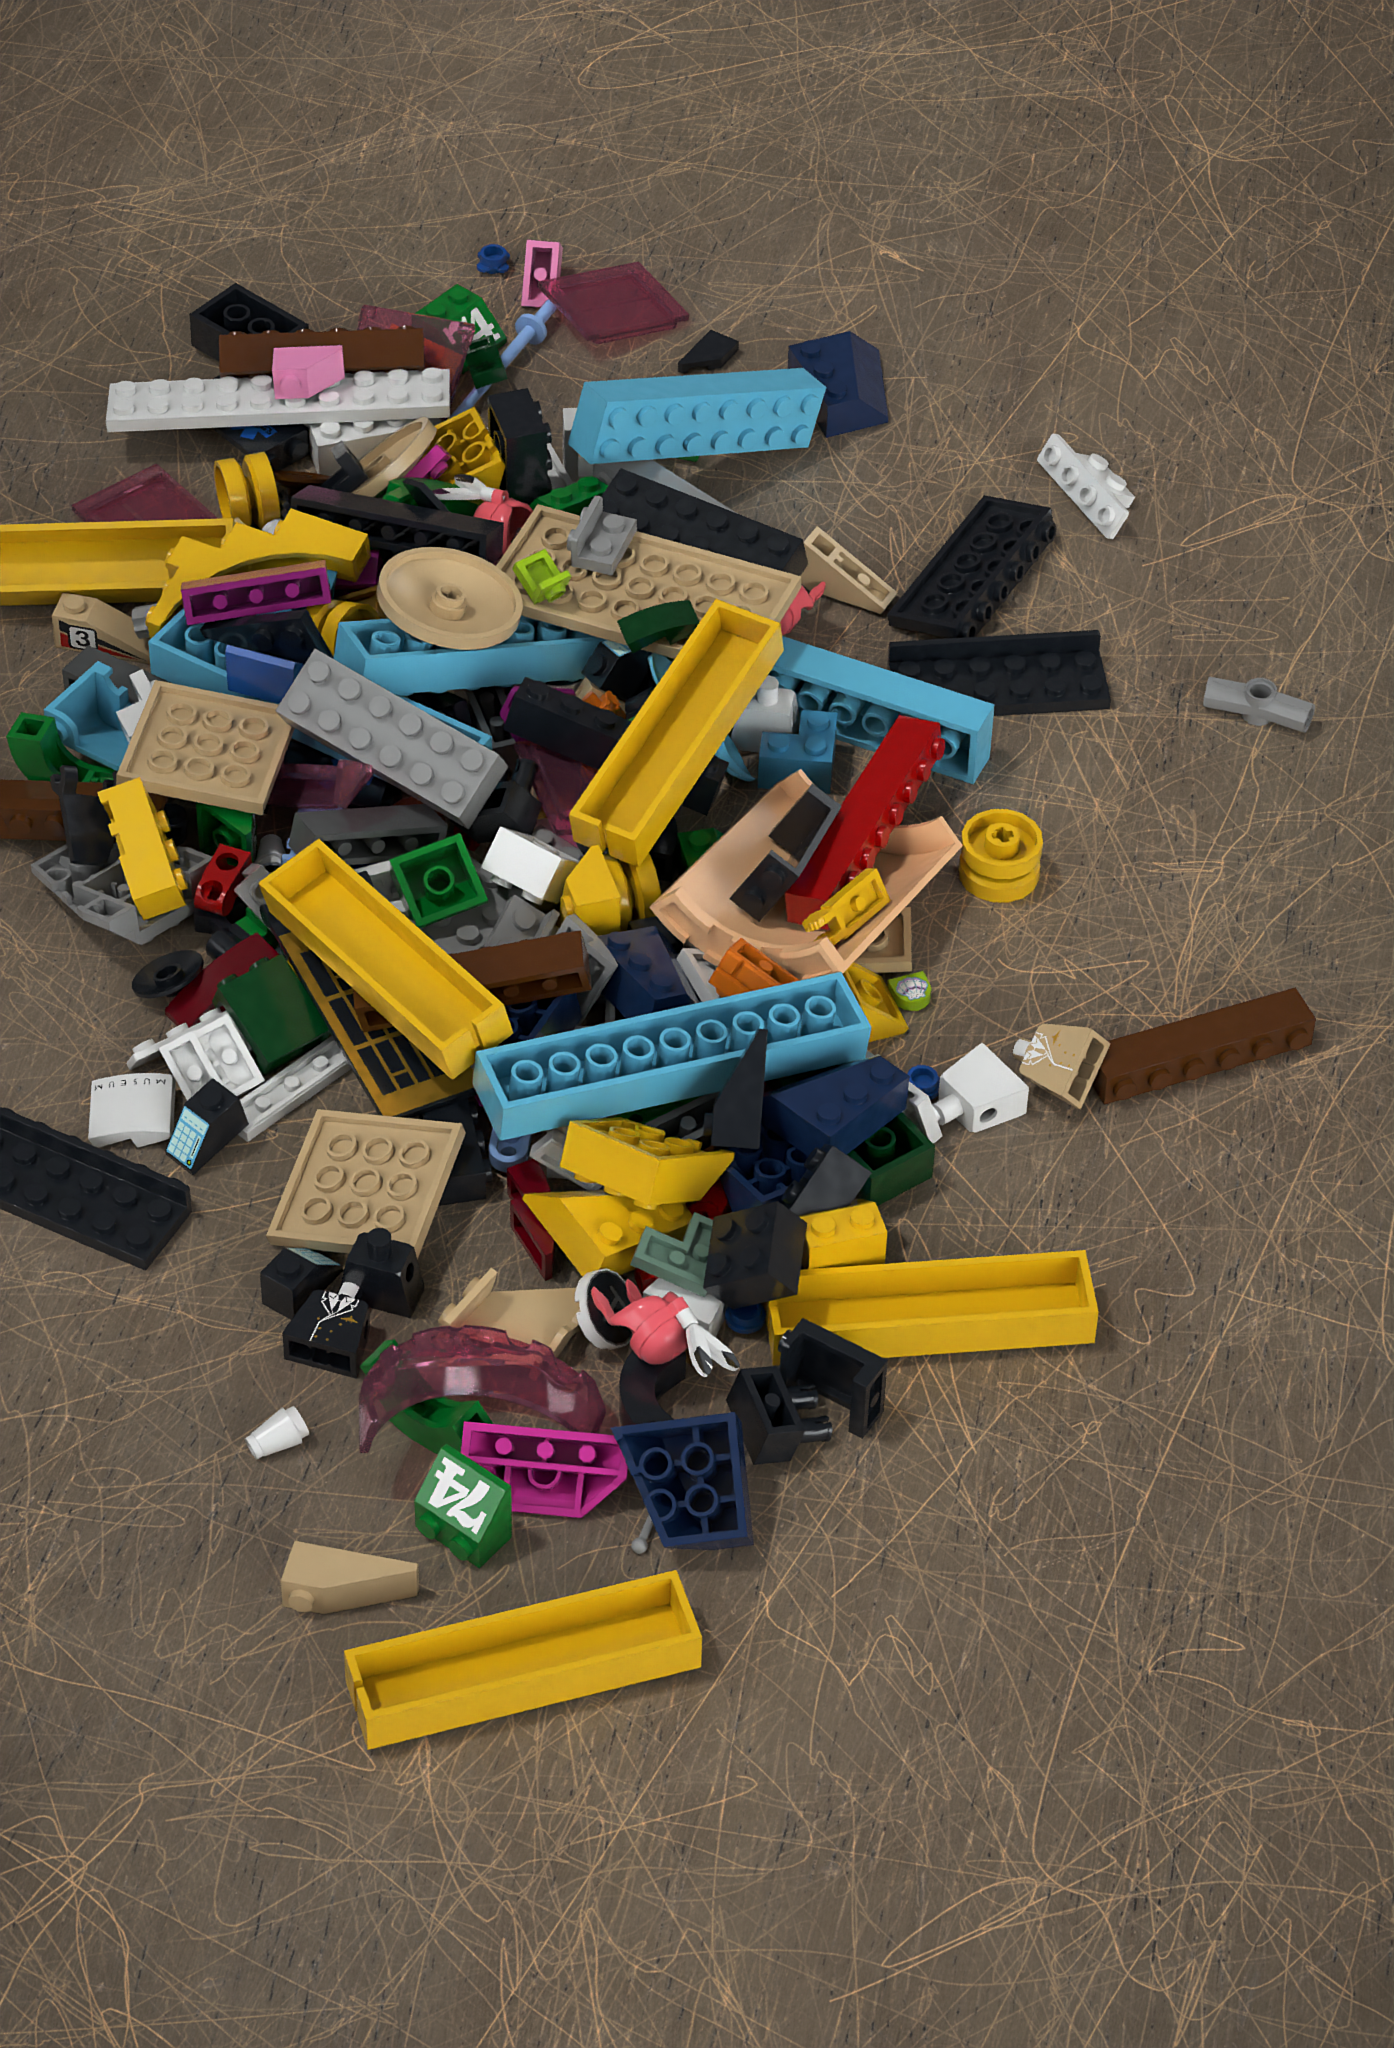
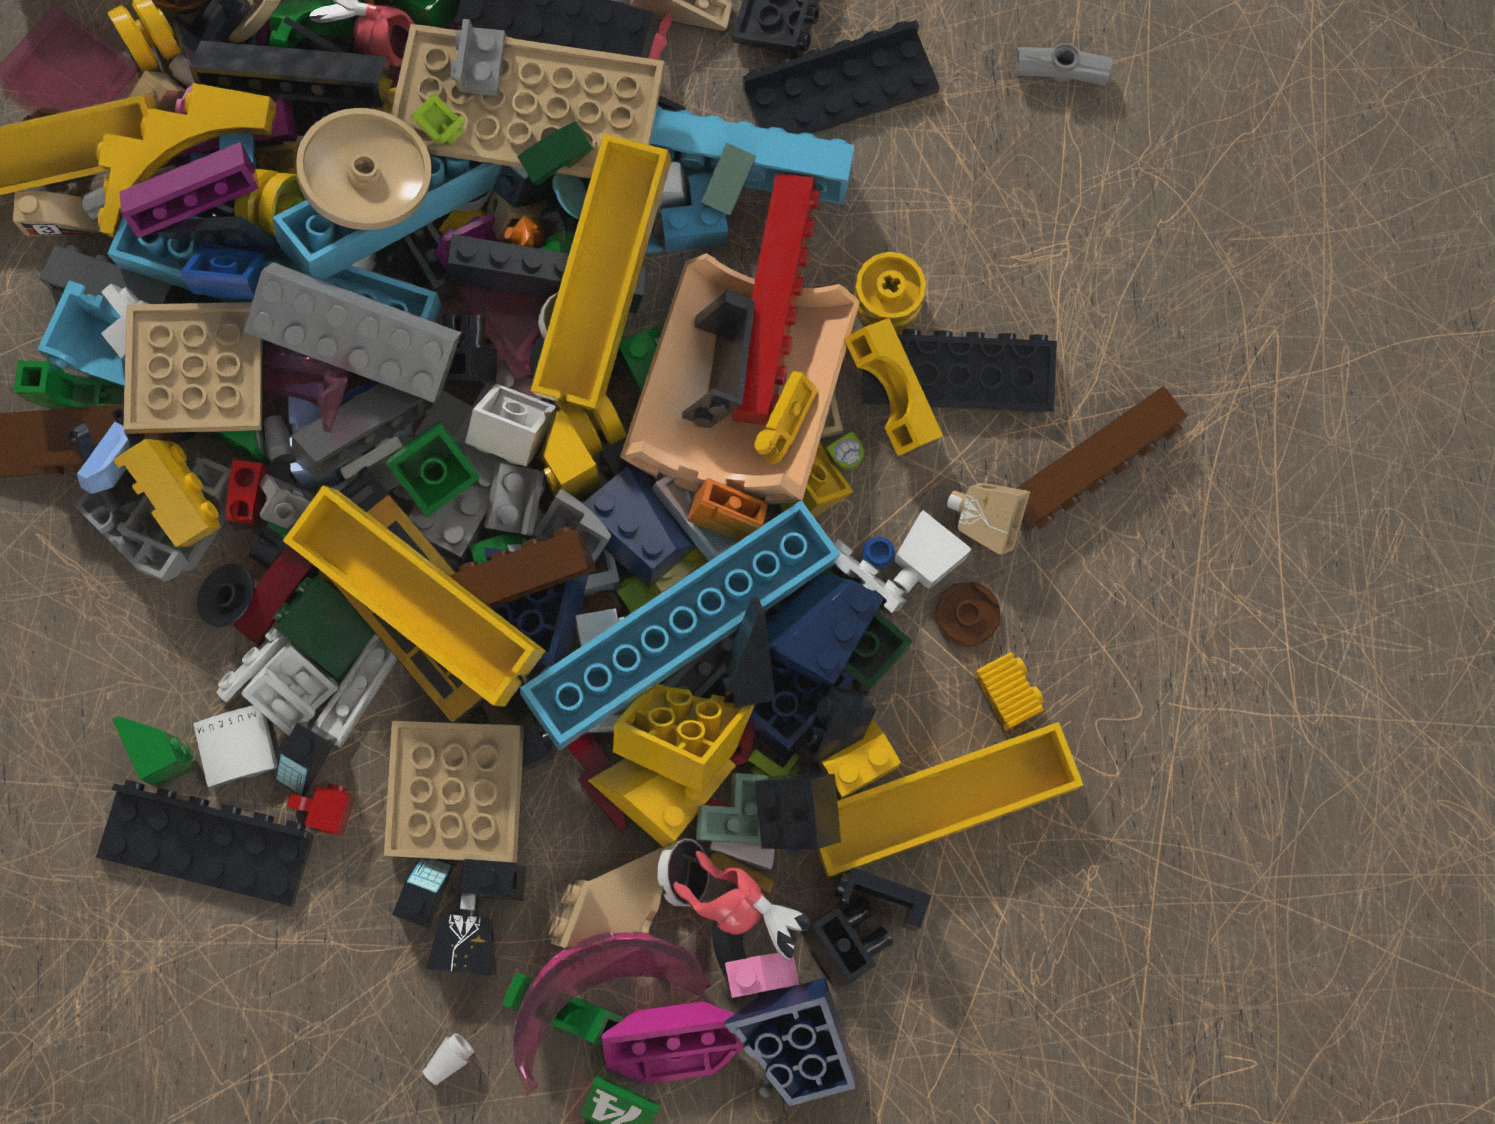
camera: 15 degrees left, 30 degrees up
(47, 1080) = (153, 752): none -> green slope
(80, 807) = (100, 469): none -> light blue slope
(215, 1183) = (327, 810): none -> red brick
(662, 1396) = (761, 974): none -> bright pink slope
(844, 707) = (728, 179): none -> sand green tile
(972, 888) = (882, 354): none -> yellow arch
(1010, 1161) = (967, 614): none -> reddish brown tile
(1037, 1223) = (1009, 691): none -> yellow brick
(1061, 940) = (976, 371): none -> black bracket

